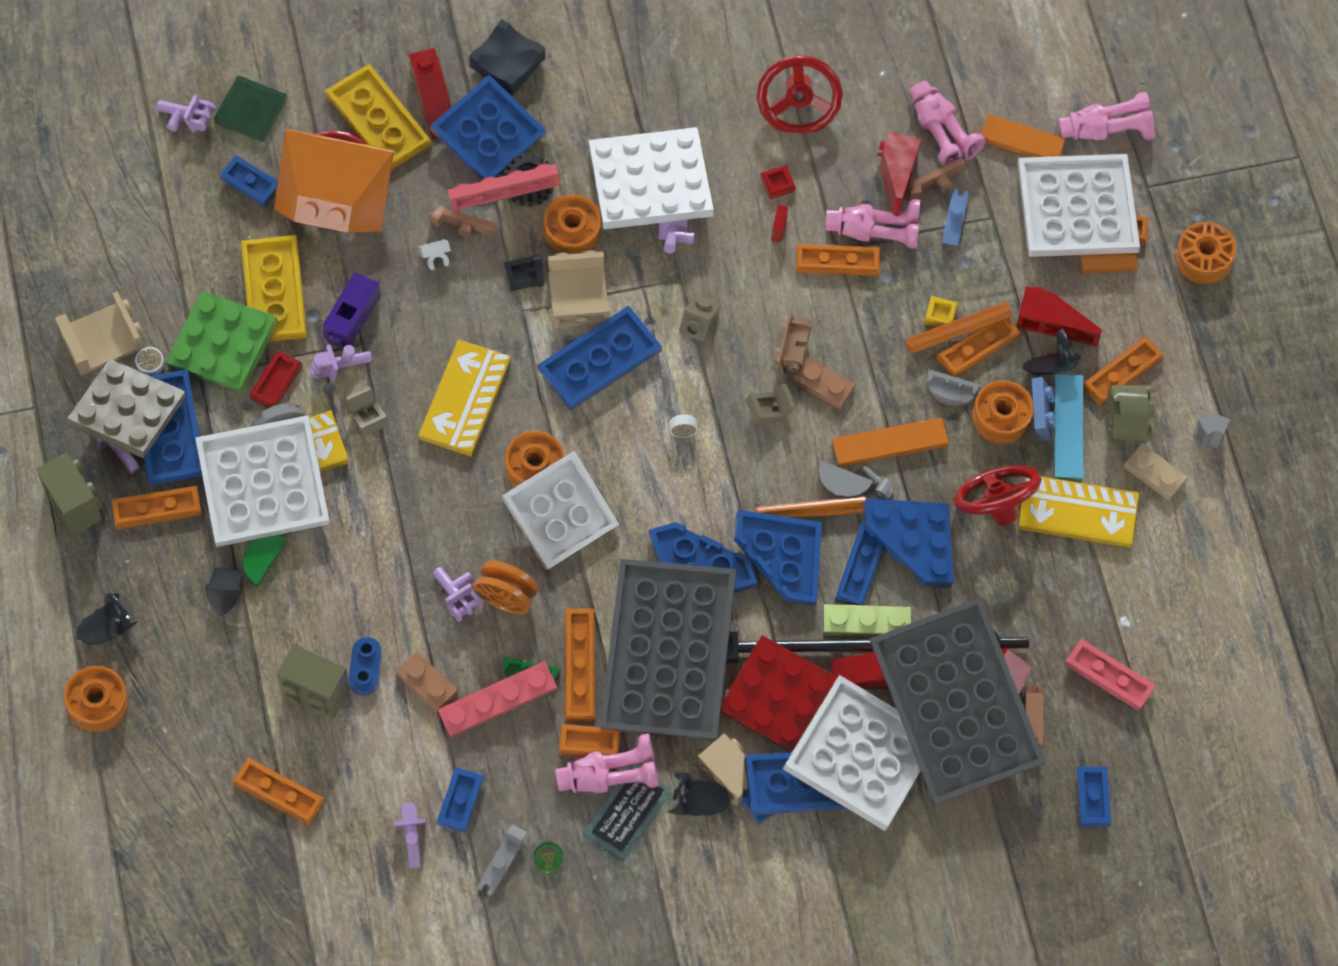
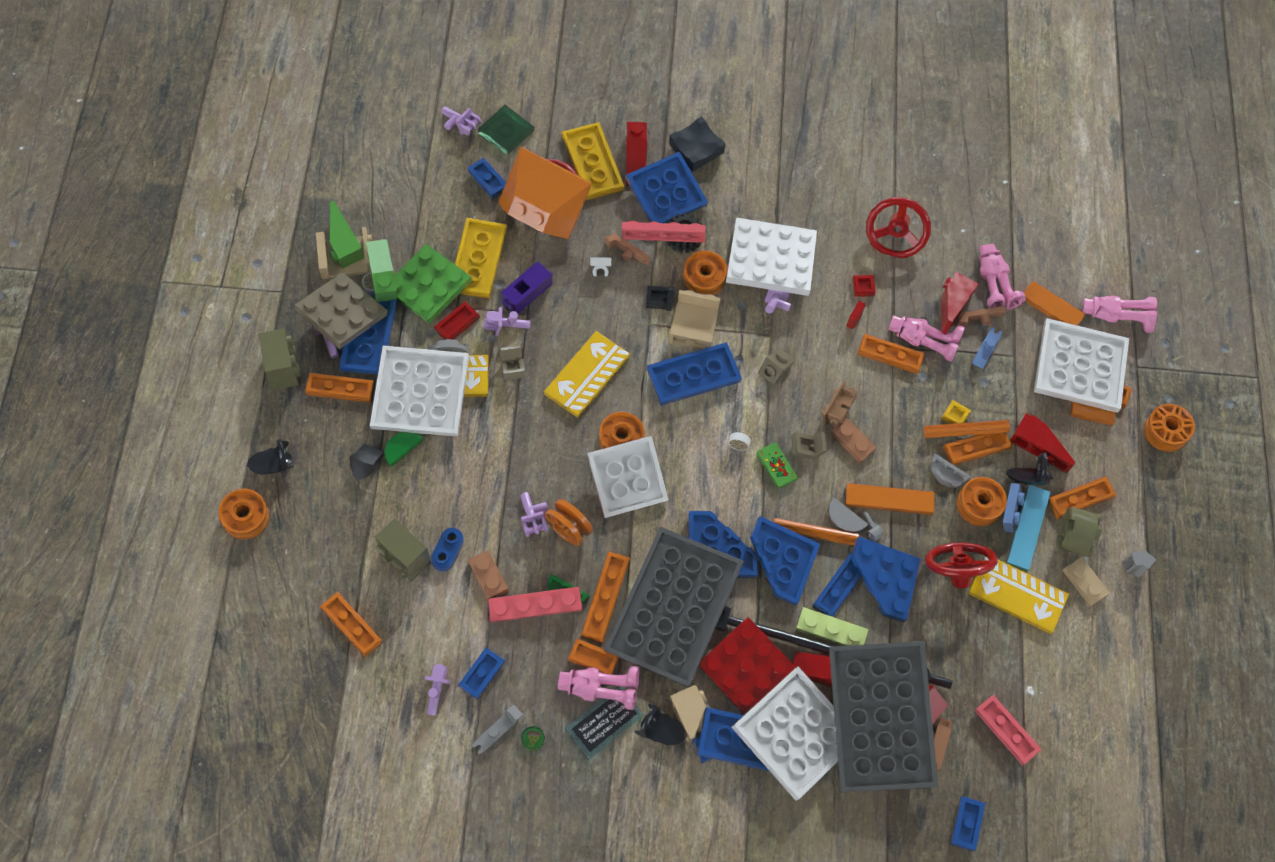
camera: 15 degrees right, 0 degrees up
(96, 321) = (343, 242): none -> bright green slope
(160, 342) = (381, 270): none -> bright green slope
(738, 442) = (776, 465): none -> bright green tile

